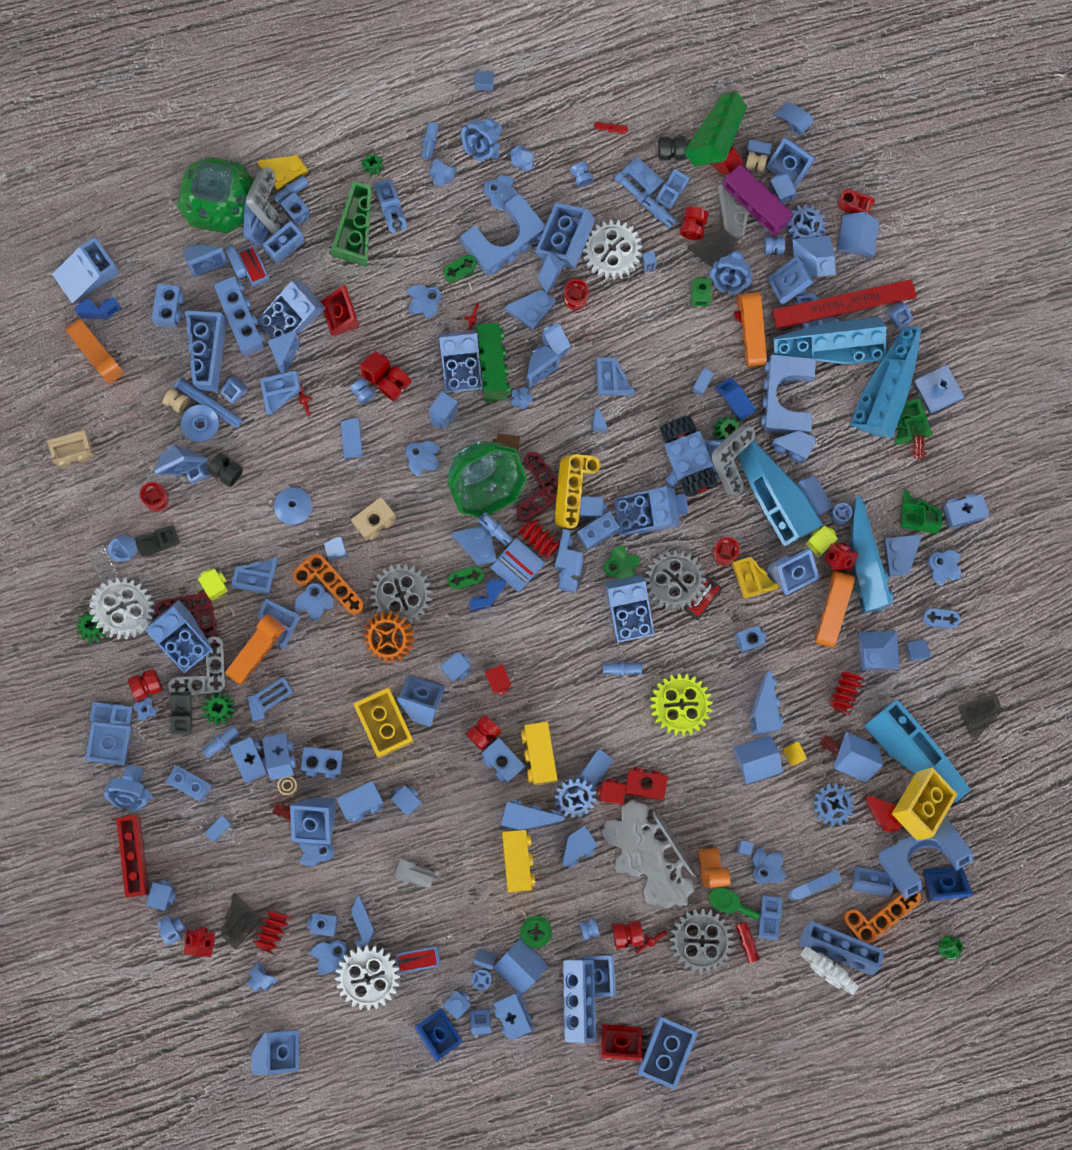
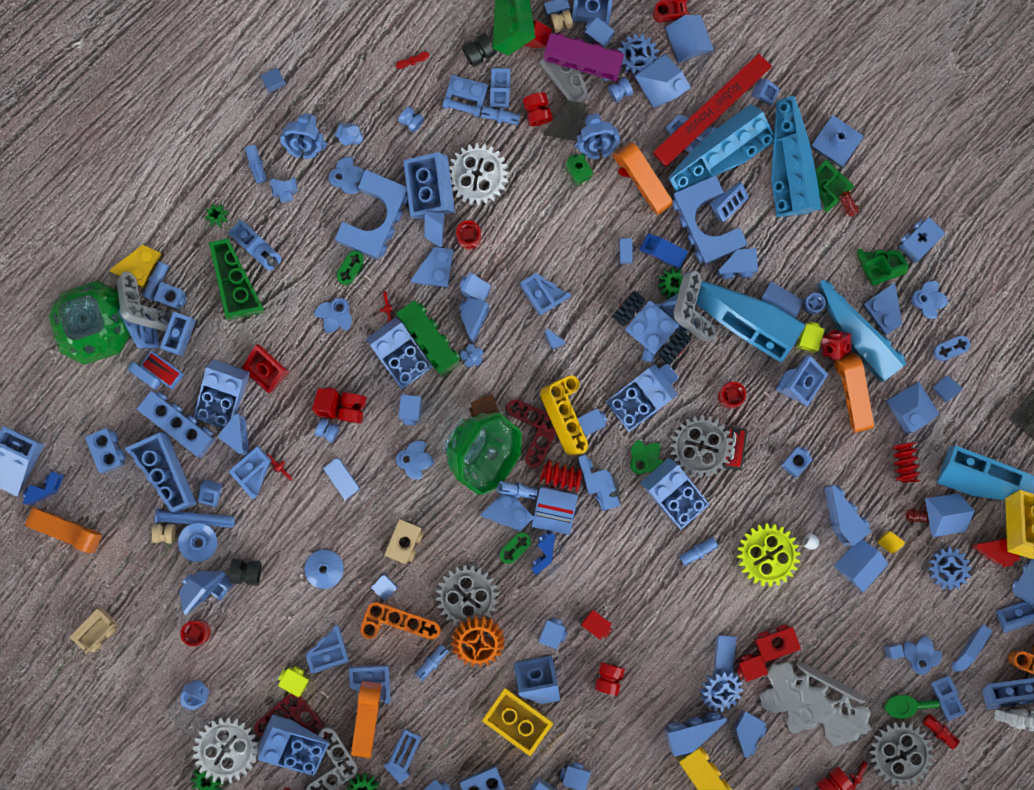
camera: 25 degrees left, 5 degrees up
(157, 541) = (221, 669): pearl dark grey slope -> none
(204, 258) = (112, 389): medium blue slope -> none
(314, 604) = (393, 647): medium blue plate -> none
(339, 634) = (431, 662): none -> medium blue pin
(499, 749) = (652, 694): medium blue brick -> none
(539, 754) = (670, 671): yellow brick -> none
(598, 531) = (609, 440): medium blue brick -> none
(649, 261) = (517, 167): medium blue piece -> none
(710, 869) = (879, 691): orange beam -> none
(725, 715) = (810, 541): none -> white hinge
(752, 578) = (768, 406): yellow wing -> none
(790, 280) = (653, 115): medium blue tile -> none
(810, 383) = (720, 202): none -> medium blue slope

